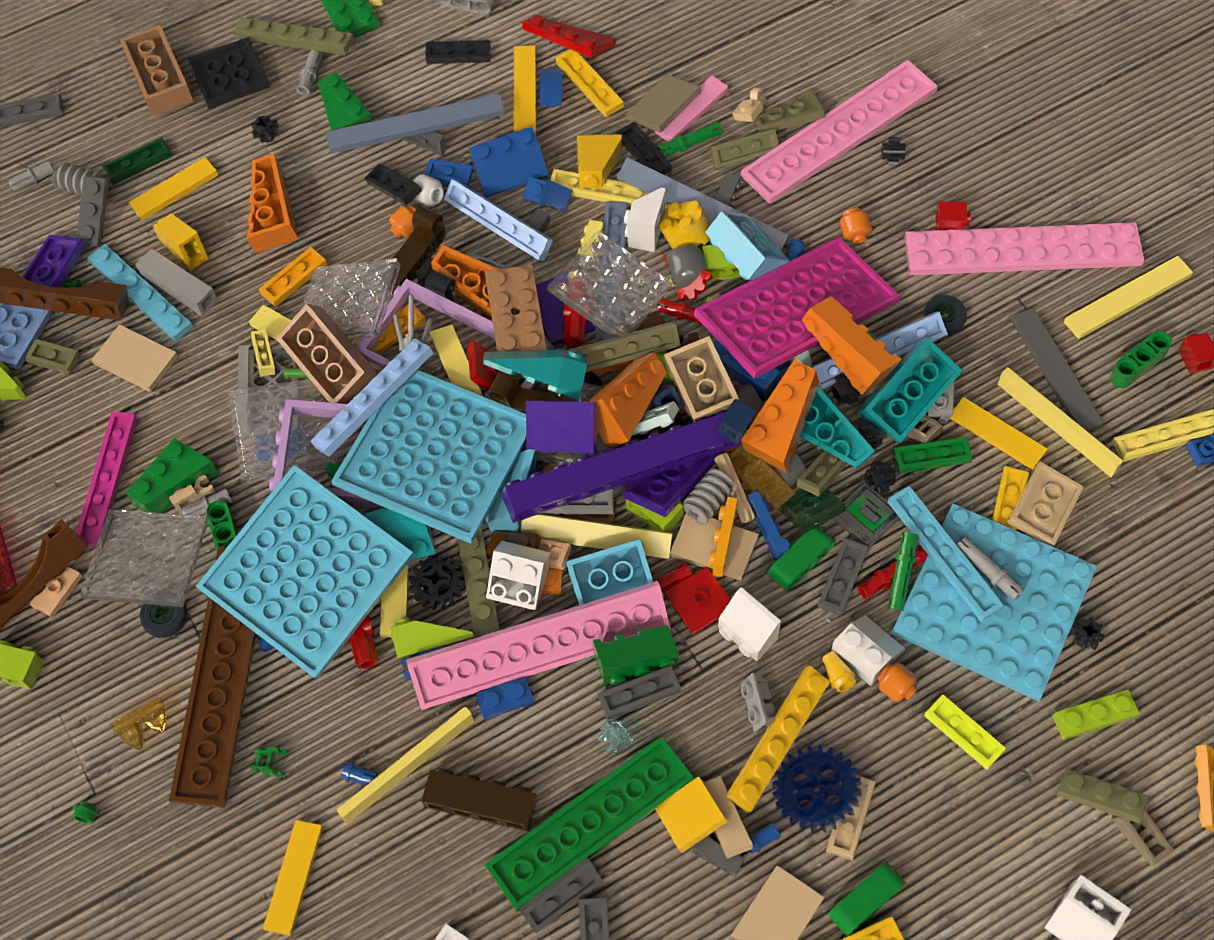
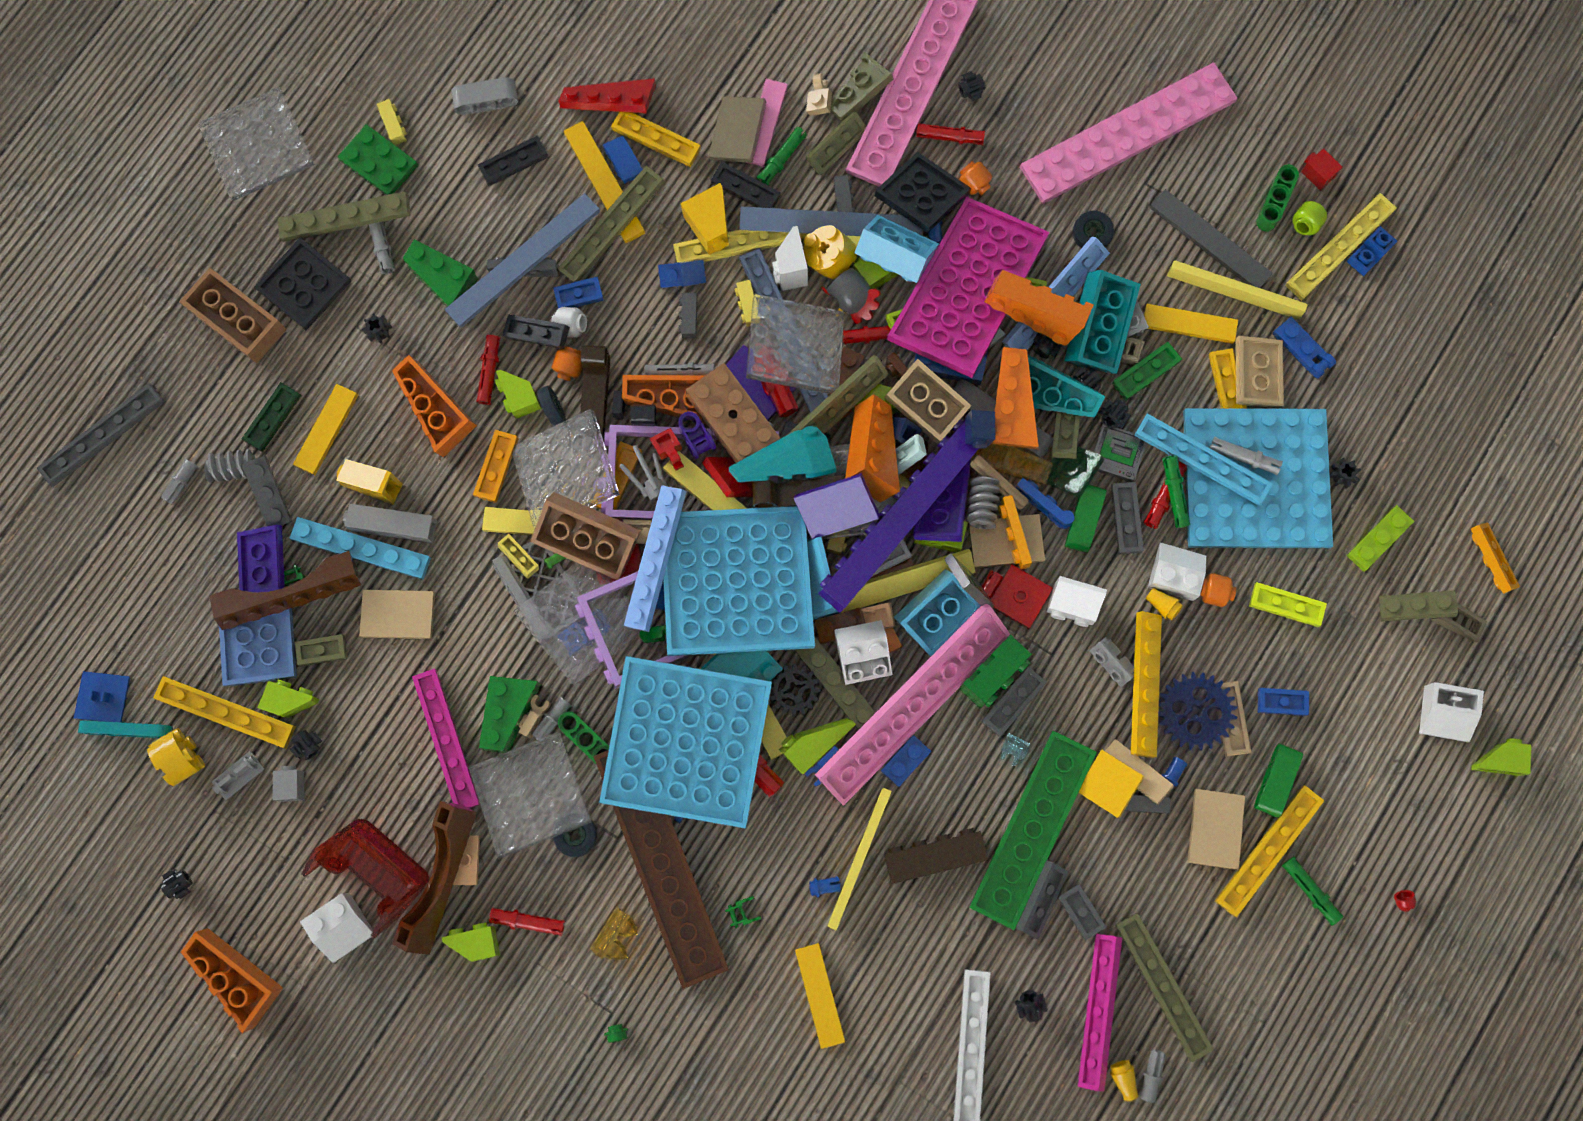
camera: 25 degrees left, 15 degrees up
(64, 662) = (525, 921): none -> red pin
(341, 193) = (487, 376): none -> red pin
(348, 228) = (519, 394): none -> lime slope
(368, 244) = (551, 405): none -> black bush
(443, 315) = (667, 445): none -> red plate
(474, 320) = (697, 439): none -> dark purple piece
(498, 220) = (655, 323): light blue plate -> none
(508, 162) = (630, 259): blue slope -> none
(536, 117) = (611, 224): none -> olive plate
(652, 555) = (968, 581): none -> flat silver tile
(799, 215) = (922, 192): none -> black plate
(860, 186) = (950, 134): none -> red pin
(912, 824) = (1283, 701): none -> blue plate
(952, 216) = (1054, 130): red brick -> none
(1102, 503) = (1304, 347): none -> blue plate
(1128, 297) = (1238, 140): light yellow tile -> none
(1164, 390) = (1309, 218): none -> lime head

